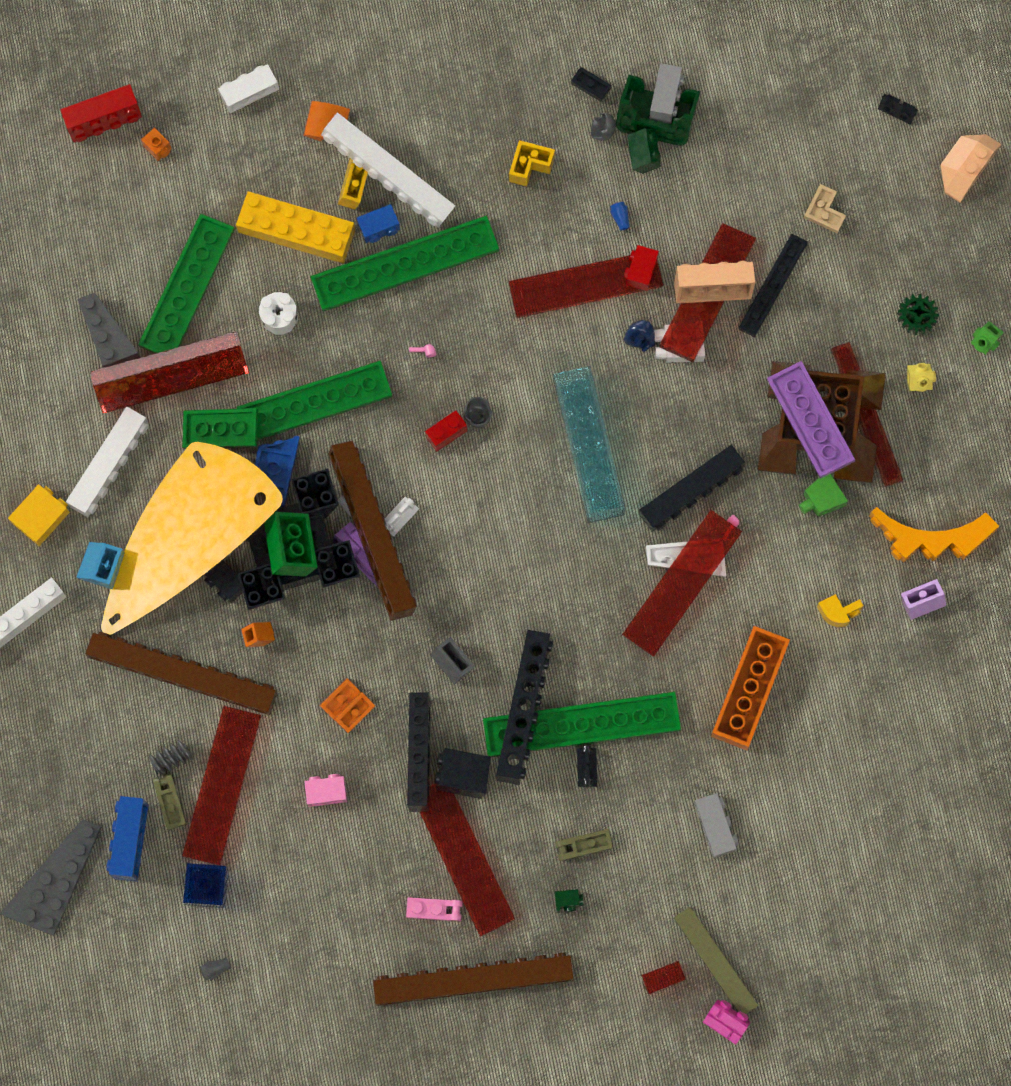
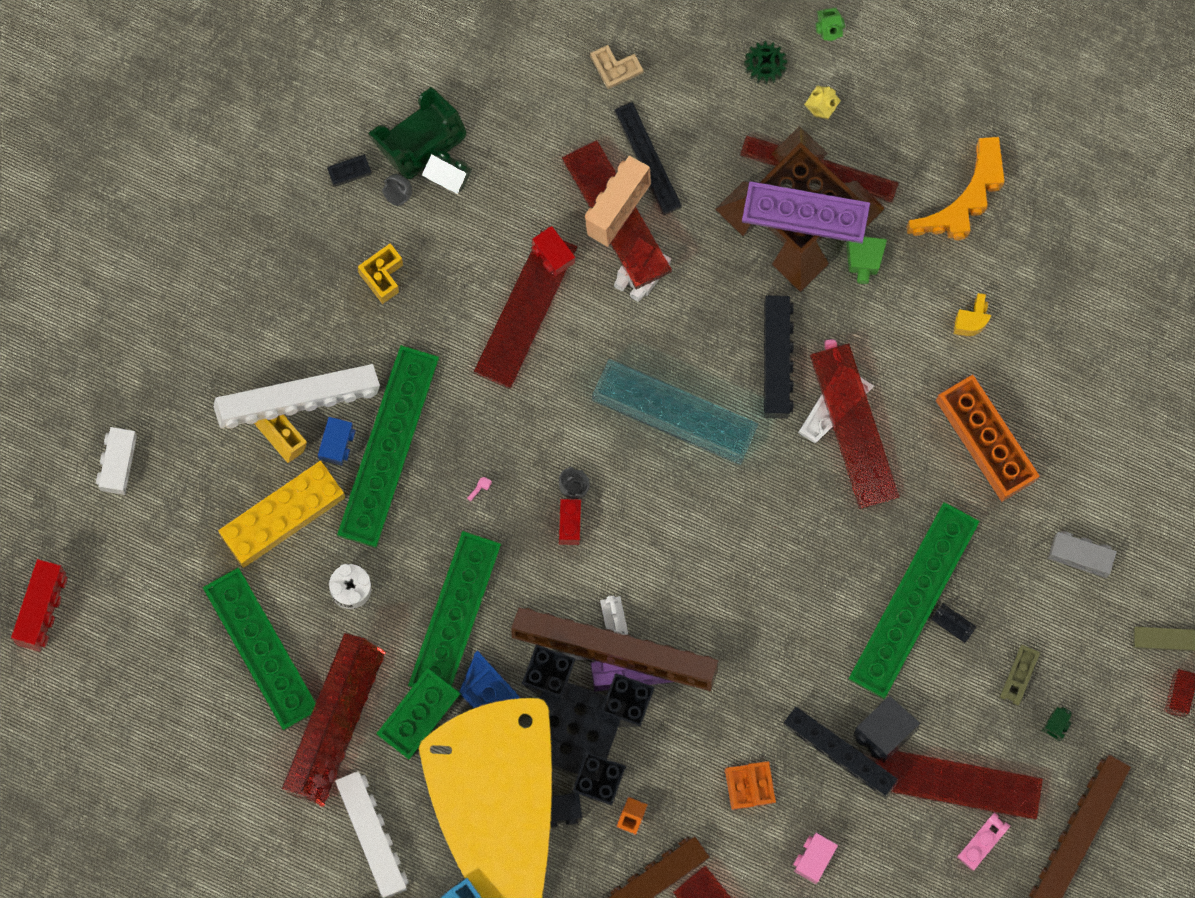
camera: 65 degrees left, 0 degrees up
(107, 336) = (251, 750): dark grey wedge -> none
(156, 144) = (105, 579): orange brick -> none
(290, 544) = (582, 725): green brick -> none
(319, 116) = (199, 417): orange slope -> none
(452, 660) = (780, 666): dark grey brick -> none
(514, 773) = (913, 691): black brick -> none
(620, 214) = (487, 234): blue cone -> none
(640, 335) = (609, 298): dark blue piece -> none
(666, 93) = (409, 115): light grey brick -> none
(923, 599) = (1015, 243): lavender brick -> none

